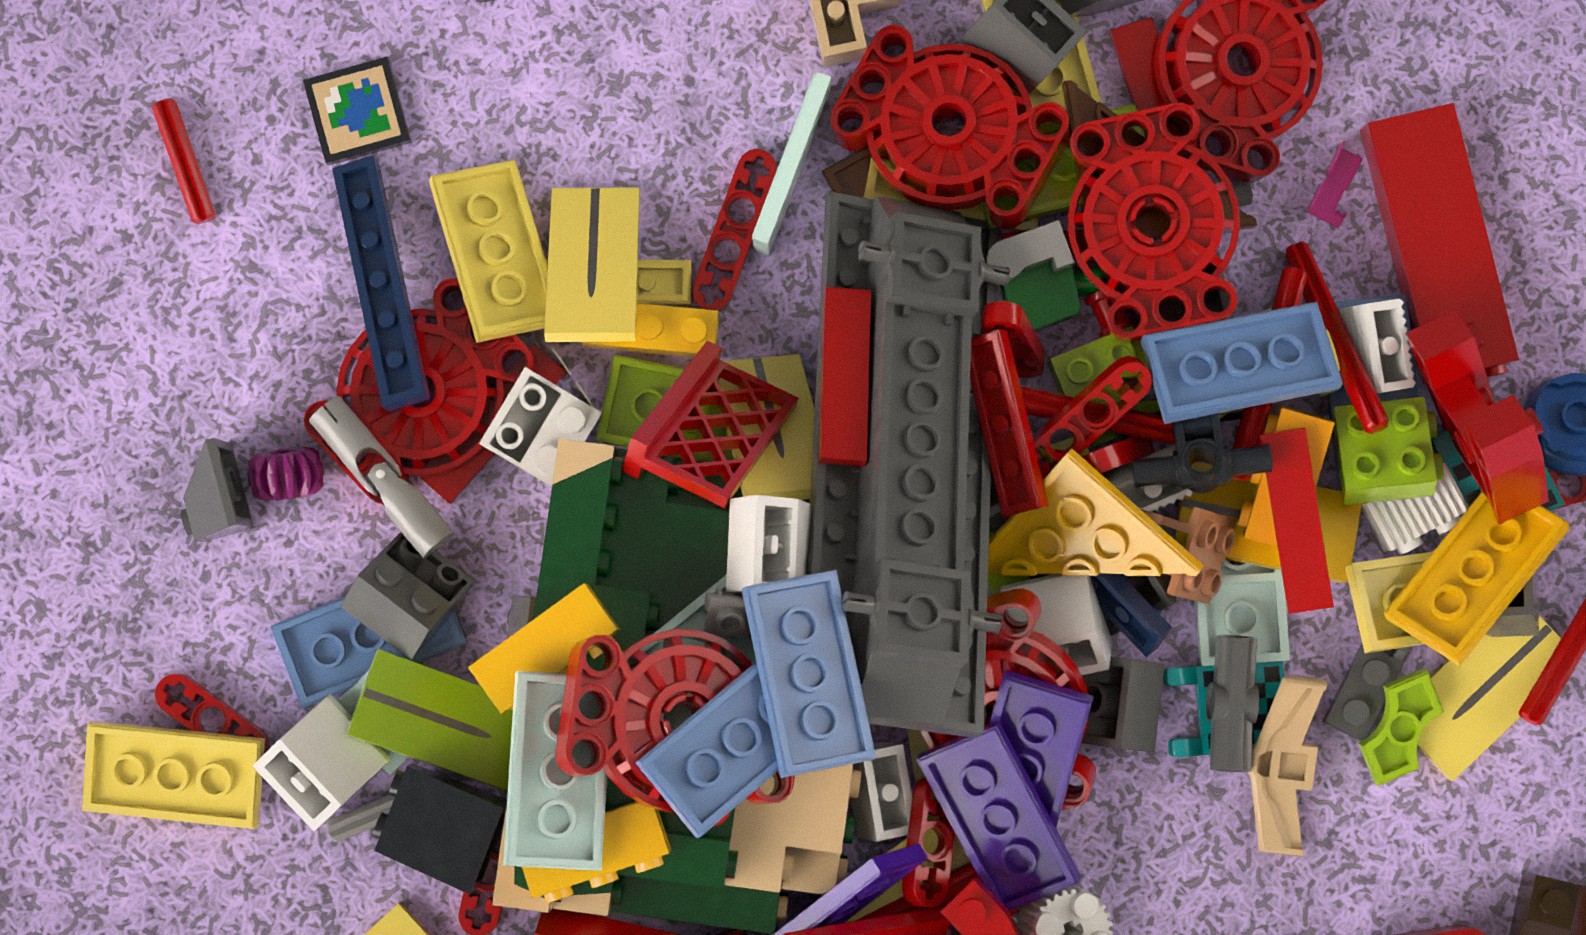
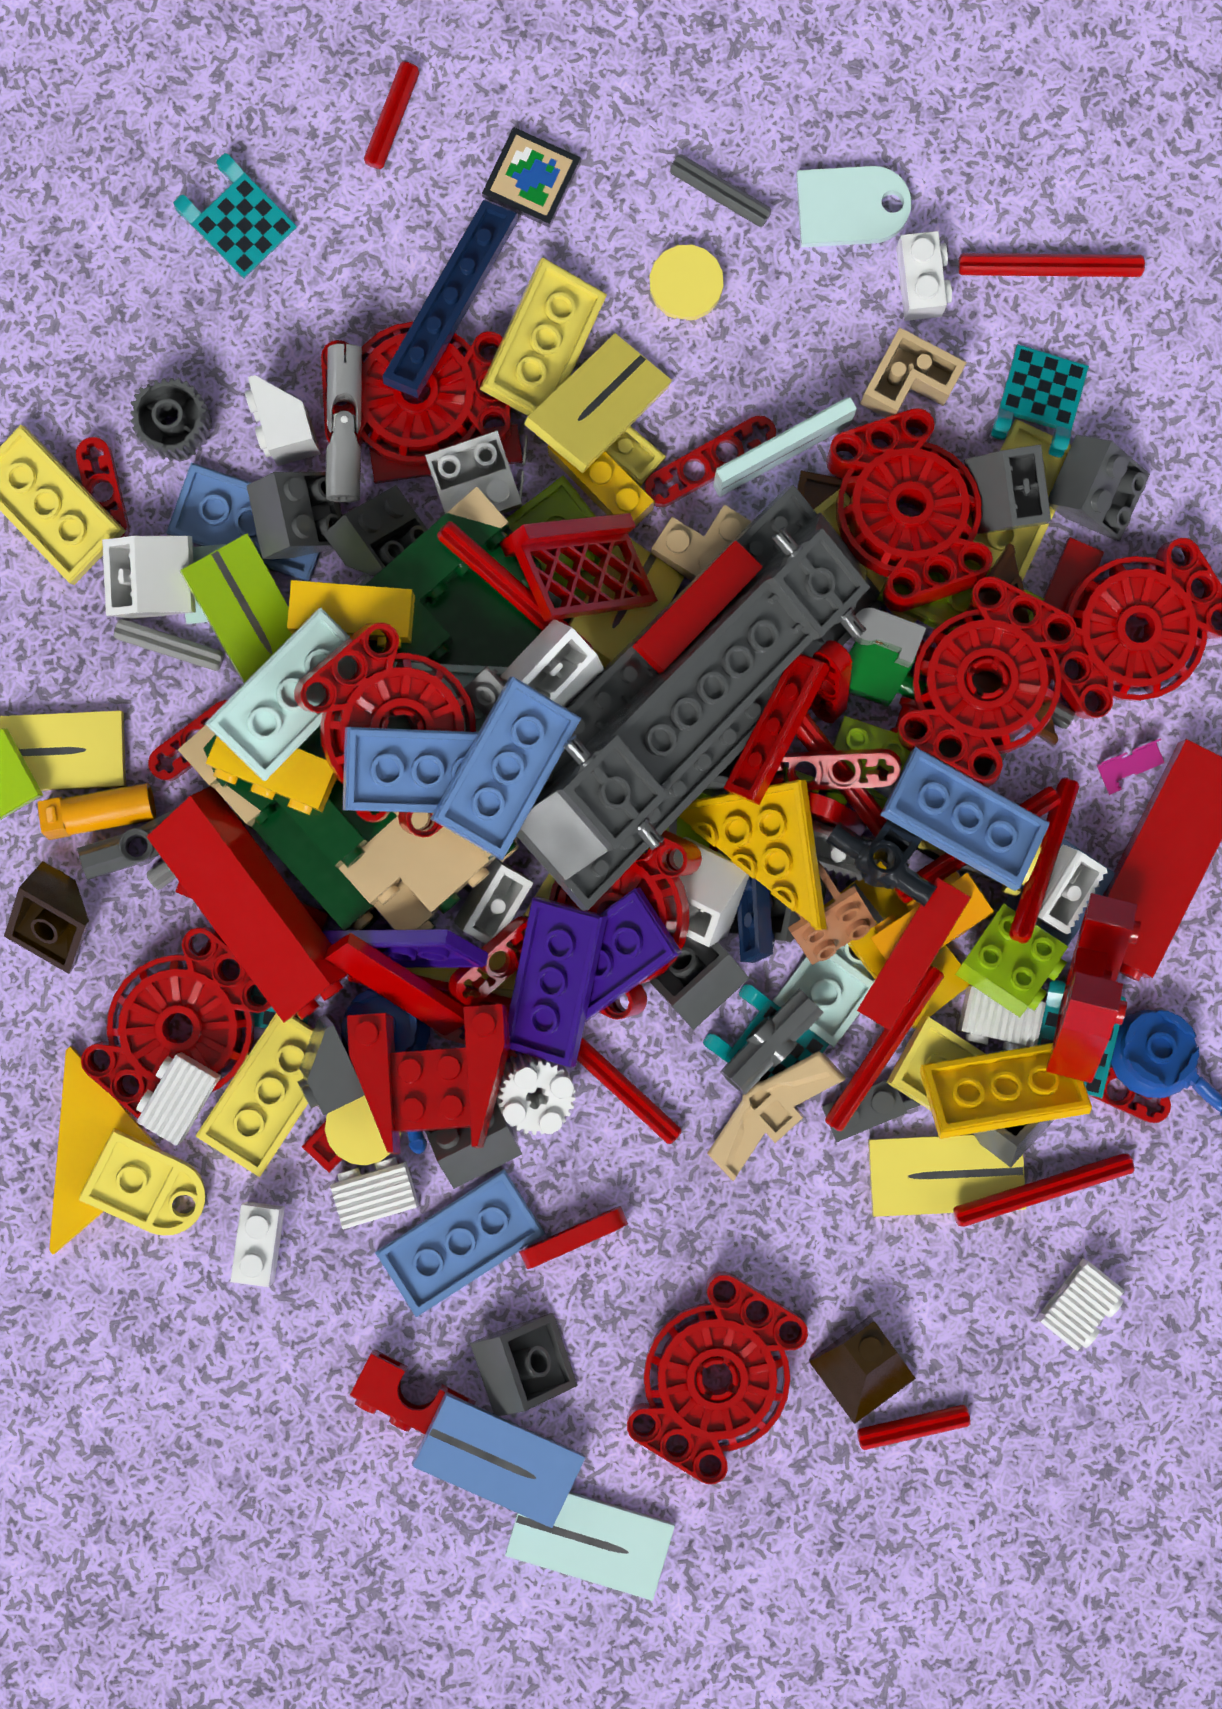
camera: 35 degrees right, 0 degrees up
(129, 371) = (240, 222): none -> teal flag
(201, 587) = (167, 399): none -> dark grey brick
(215, 495) = (228, 346): dark grey slope -> none
(285, 473) = (284, 370): magenta gear -> none
(326, 520) = (285, 423): none -> white slope
(440, 827) = (186, 679): black slope -> none
(499, 549) = (375, 532): none -> dark grey slope
(576, 88) = (686, 282): none -> light yellow tile
(646, 503) = (493, 573): none -> red axle
(792, 326) = (692, 552): none -> tan brick
(1145, 857) = (628, 1093): none -> red axle
(1339, 637) = (882, 1052): none -> red axle
(1408, 709) = (854, 1158): lime tile -> none

